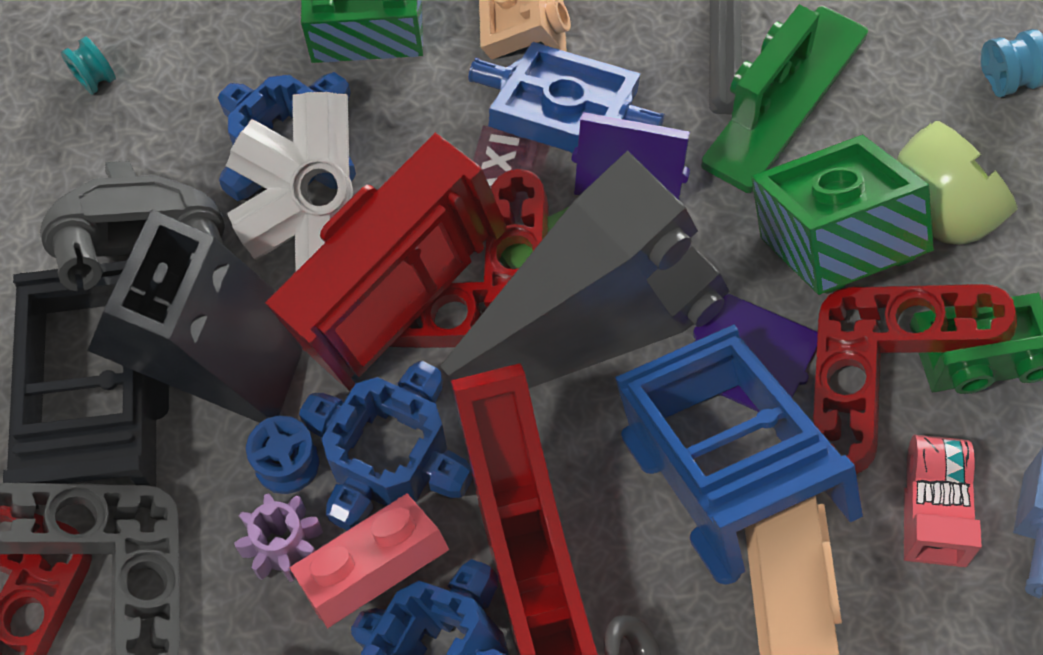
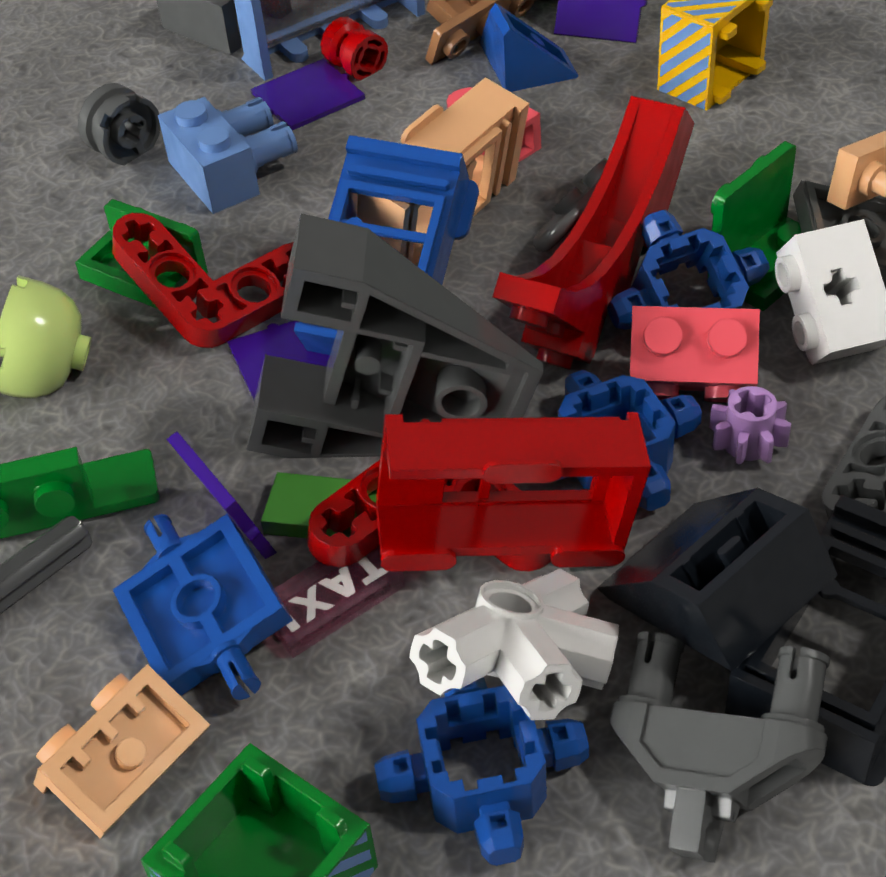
camera: 140 degrees left, 15 degrees down
(276, 441) = (697, 467): blue wheel -> none
(843, 213) = (130, 350): green container -> none
(940, 502) = (273, 216): coral leg -> none

